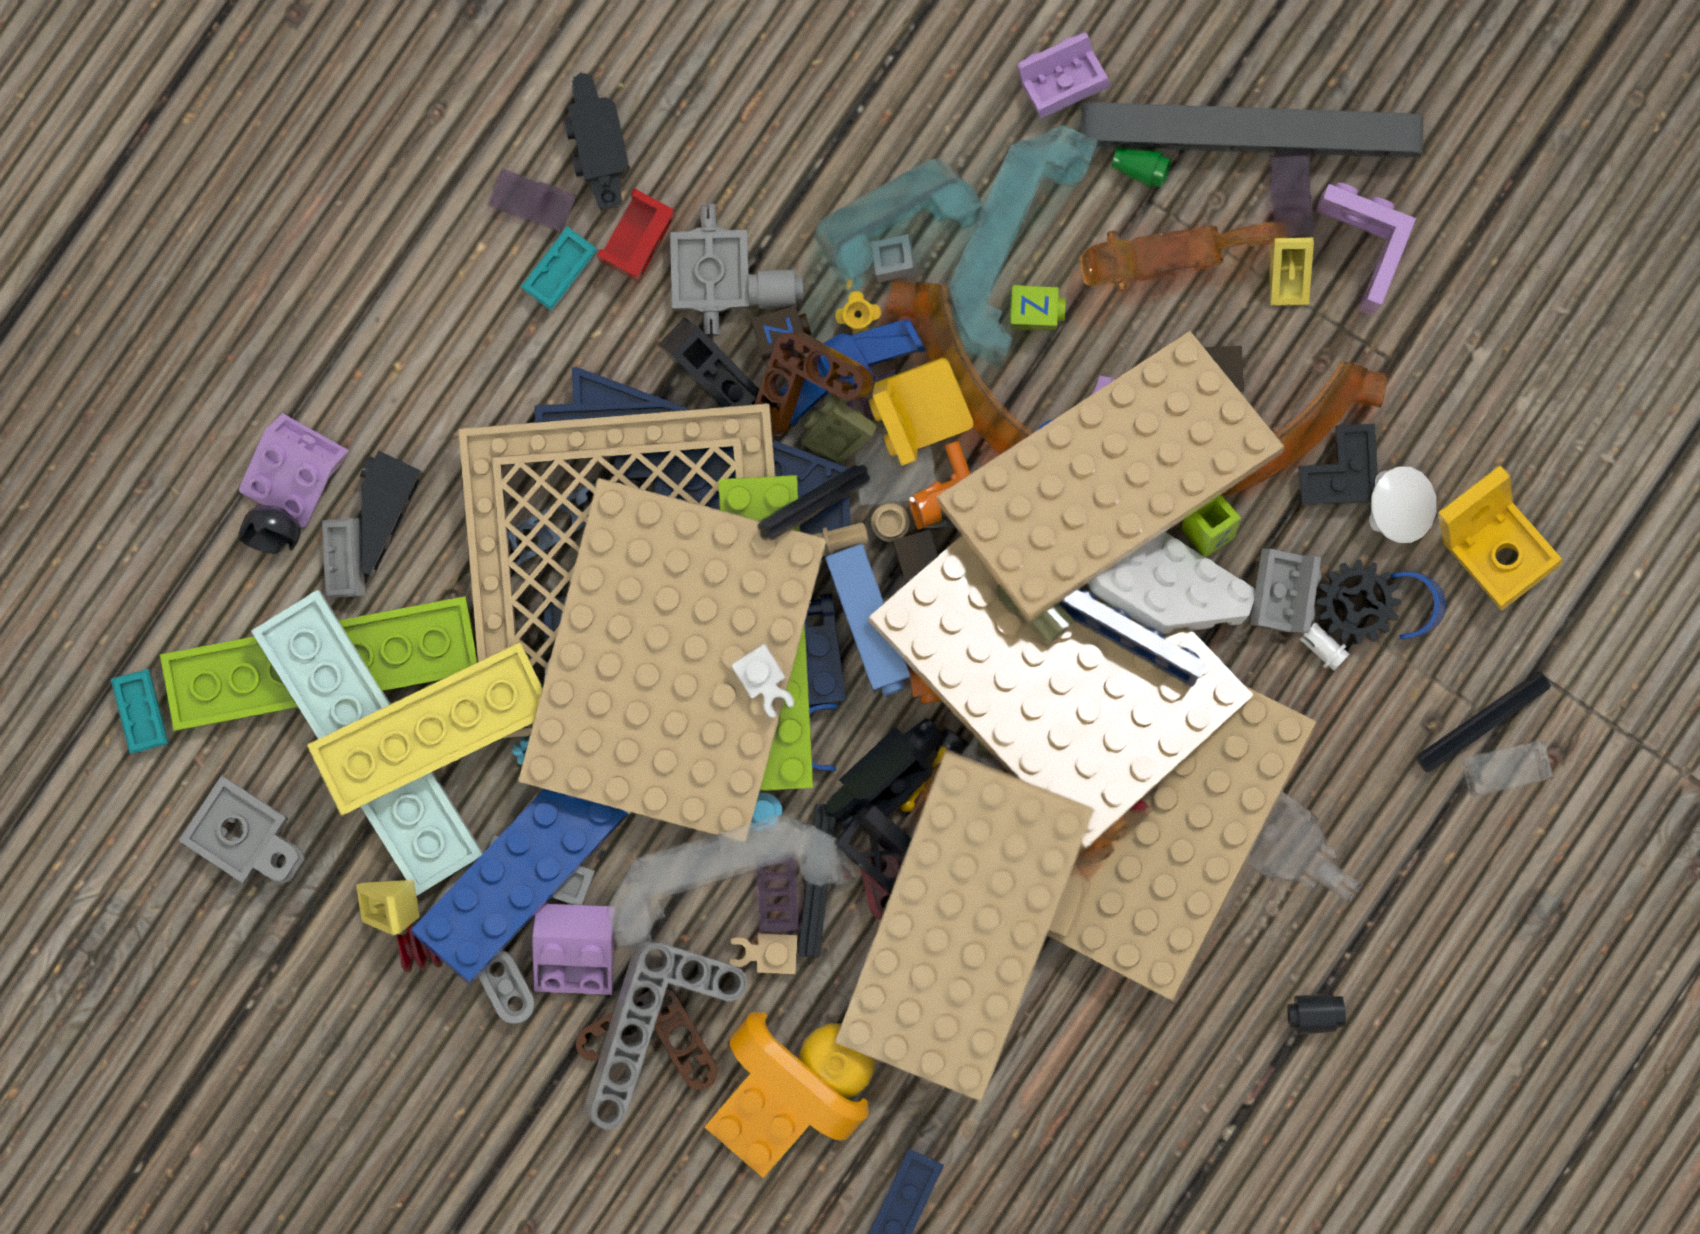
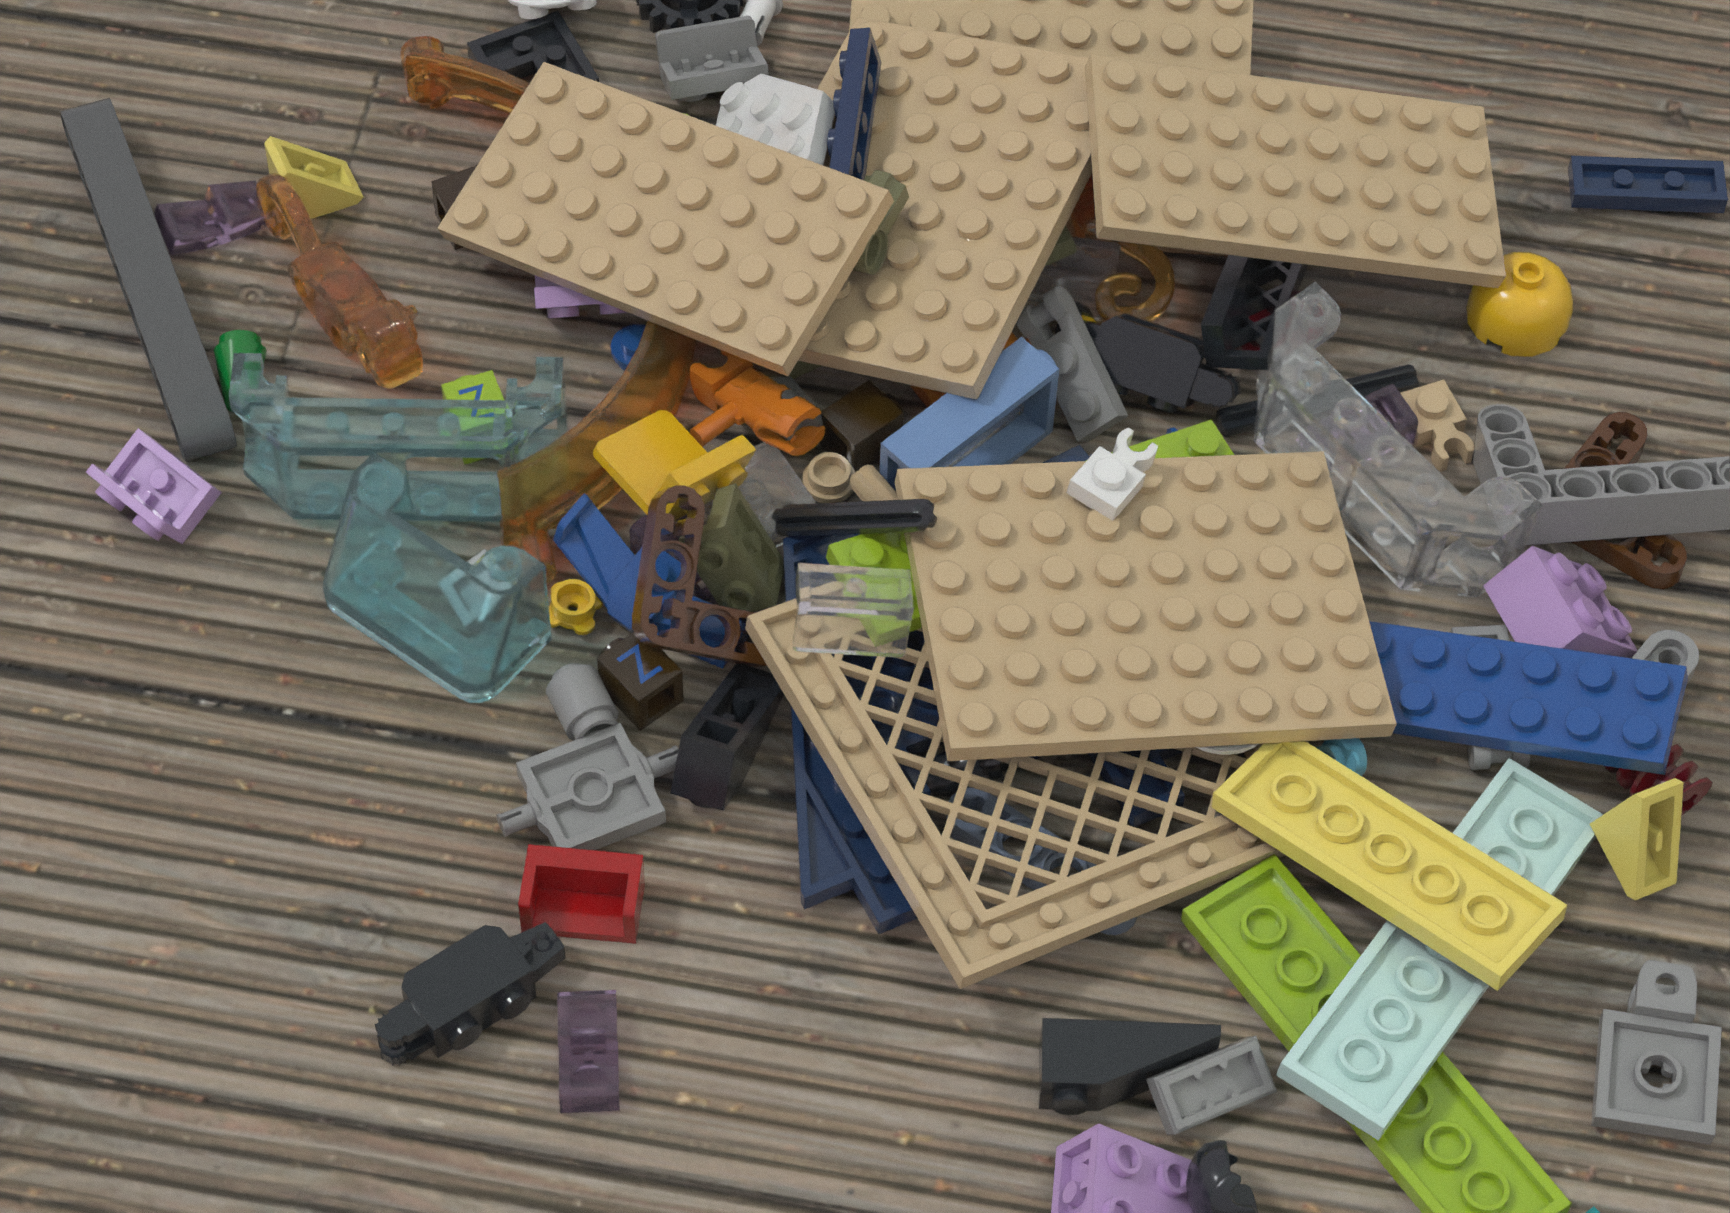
camera: 115 degrees left, 30 degrees down
(559, 268) = (672, 974): teal plate -> none
(737, 467) = (852, 610): none -> clear panel
(777, 1101) = (1607, 332): light orange piece -> none
(898, 719) = (1083, 381): none -> light grey plate
(1378, 219) = (235, 85): lavender bracket -> none

